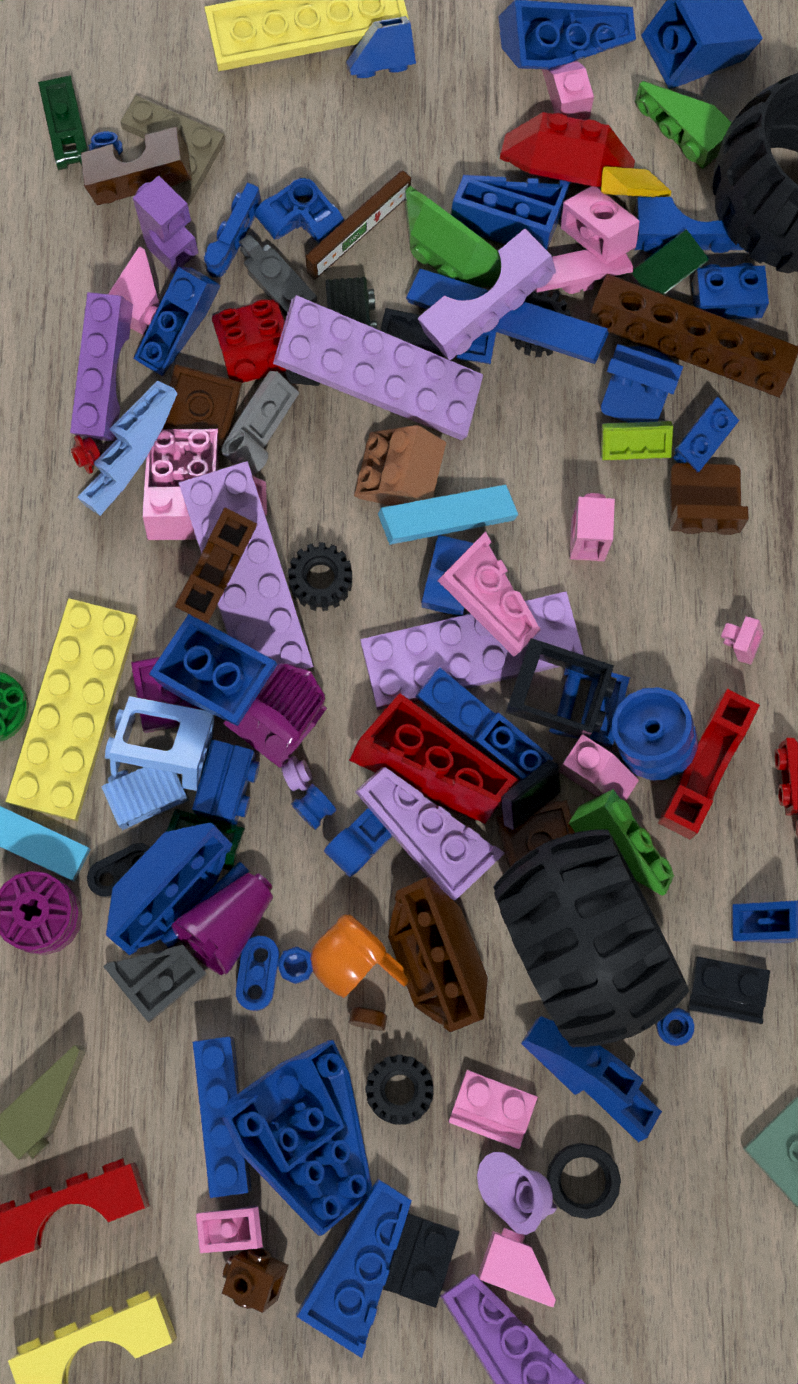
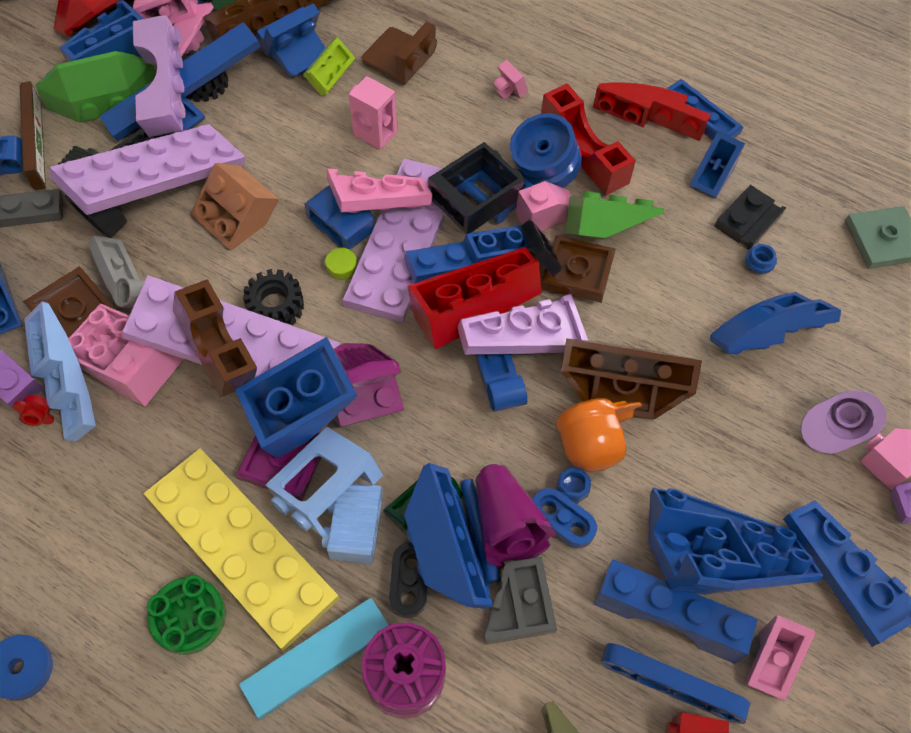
camera: 60 degrees left, 15 degrees down
(160, 1149) = (676, 683): none -> blue beam
(225, 782) = (393, 454): blue brick -> none
(250, 339) = (55, 242): red bracket -> none
(254, 1279) = (833, 661): reddish brown brick -> none
(296, 774) = (417, 399): lavender plate -> none
(313, 806) = (452, 400): blue wheel -> none
(368, 1018) = (648, 453): reddish brown tile -> none
(403, 610) = (341, 263): none -> lime tile
(416, 1106) = (728, 447): black tyre -> none
(421, 1260) = (868, 521): black plate -> none
(447, 514) = (293, 191): medium azure tile -> none
(493, 1109) = (764, 408): bright pink plate -> none
(589, 939) = (688, 238): black tyre -> none
(612, 1183) = (854, 352): black tyre -> none
(706, 435) = (356, 30): blue hinge -> none

